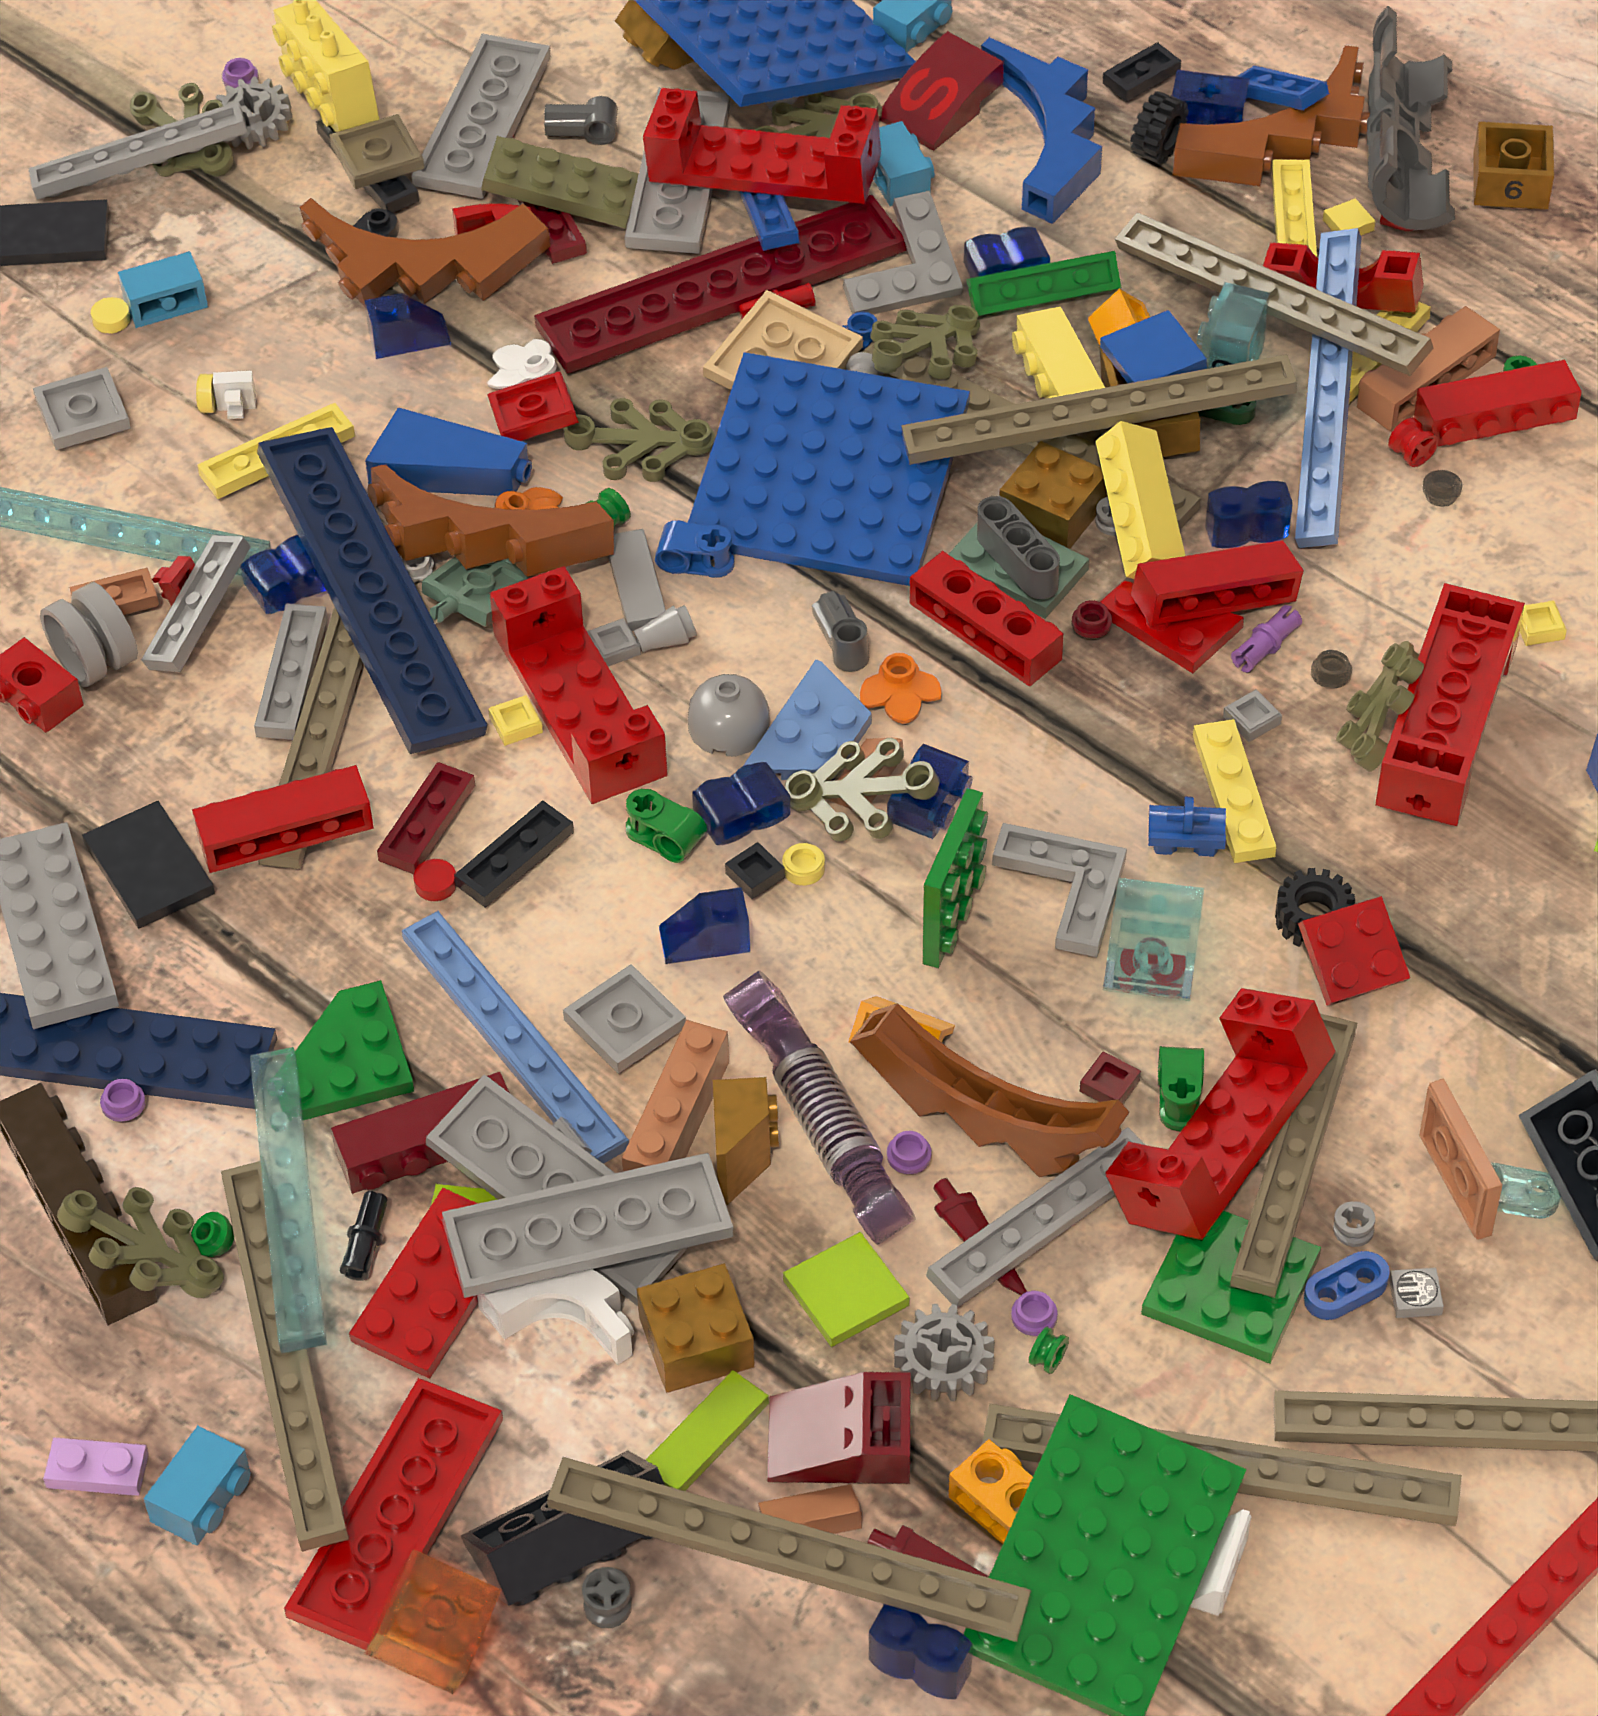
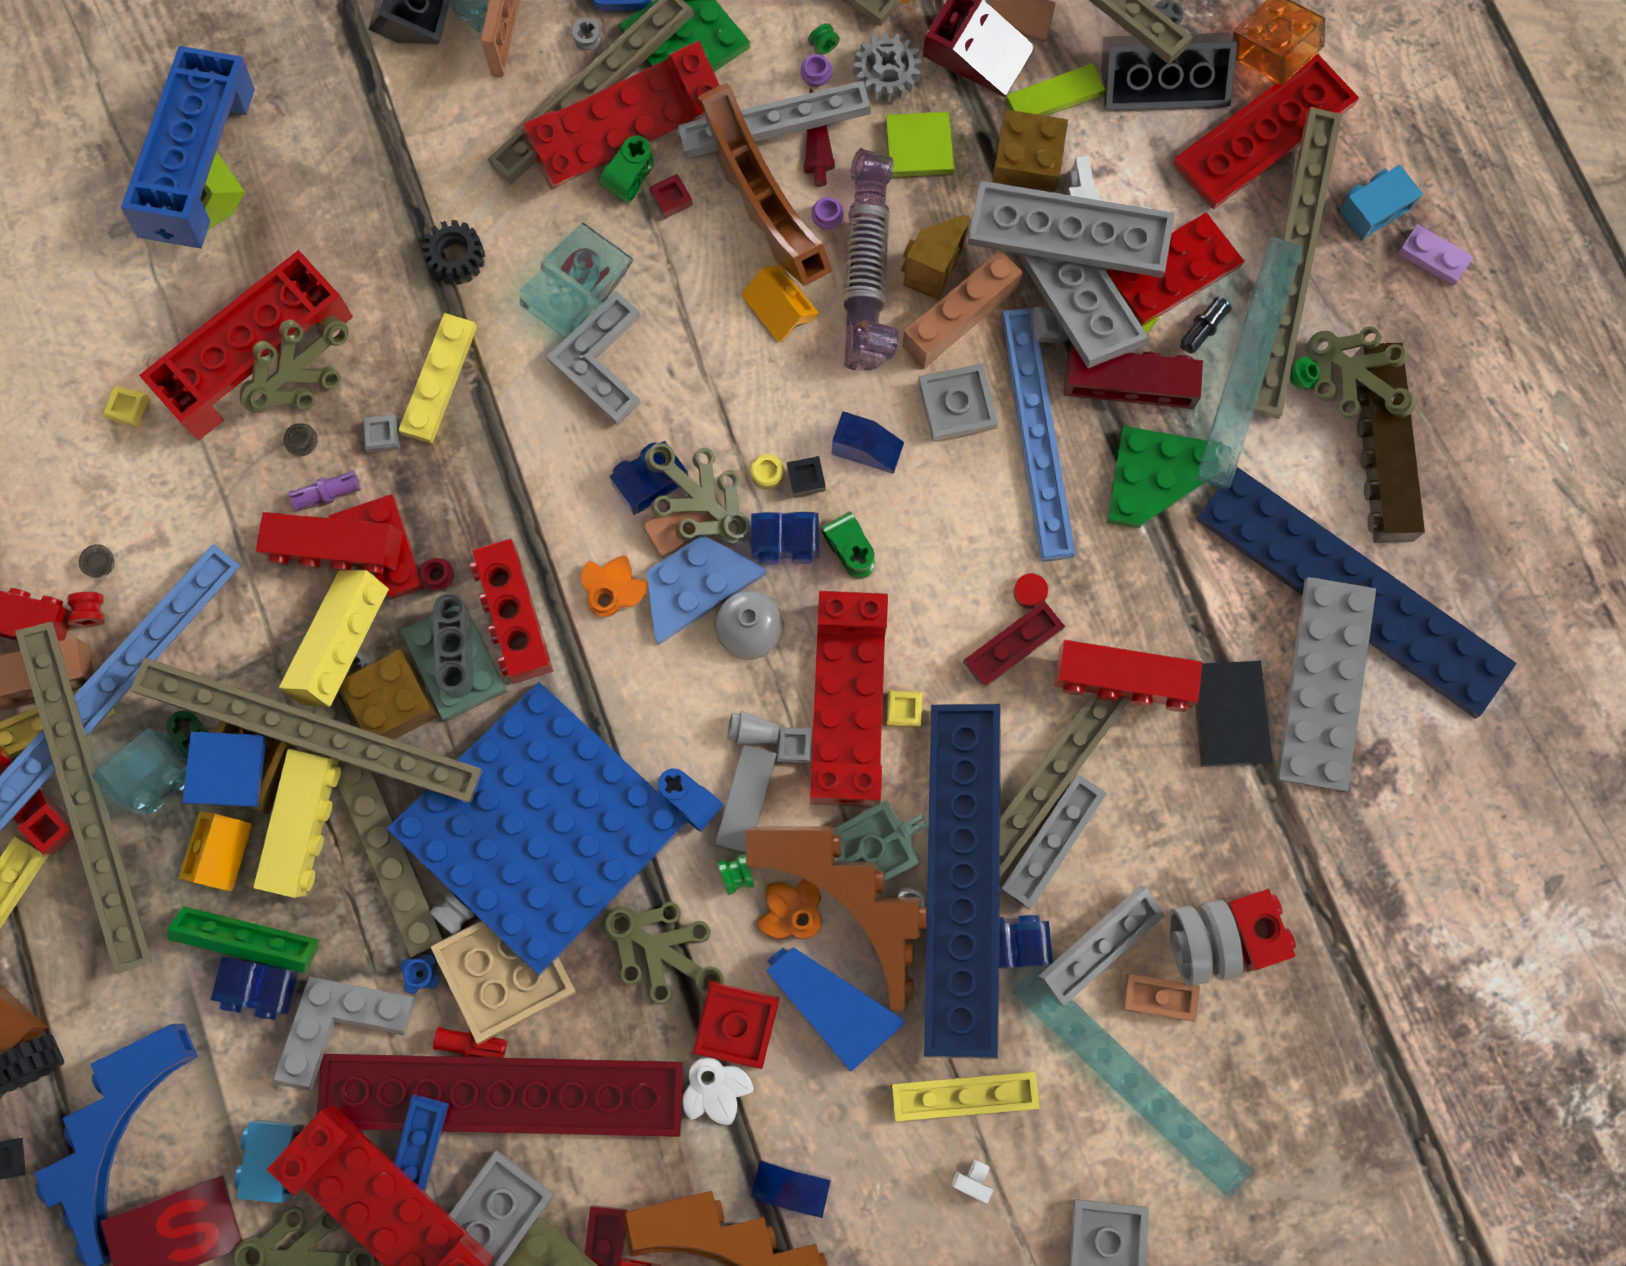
camera: 155 degrees left, 25 degrees up
(122, 1100) = (1325, 512): medium lavender plate -> none
(173, 578) = (1108, 983): red tile -> none
(205, 394) = (998, 1198): light yellow tile -> none
(513, 853) = (966, 579): black plate -> none
(842, 631) = (622, 660): dark grey piece -> none
(953, 878) = (687, 361): green plate -> none
(958, 322) = (375, 919): olive plant -> none
(1187, 828) = (496, 349): blue hips -> none
(1248, 514) = (256, 602): clear blue brick -> none
(1354, 950) = (454, 201): red plate -> none

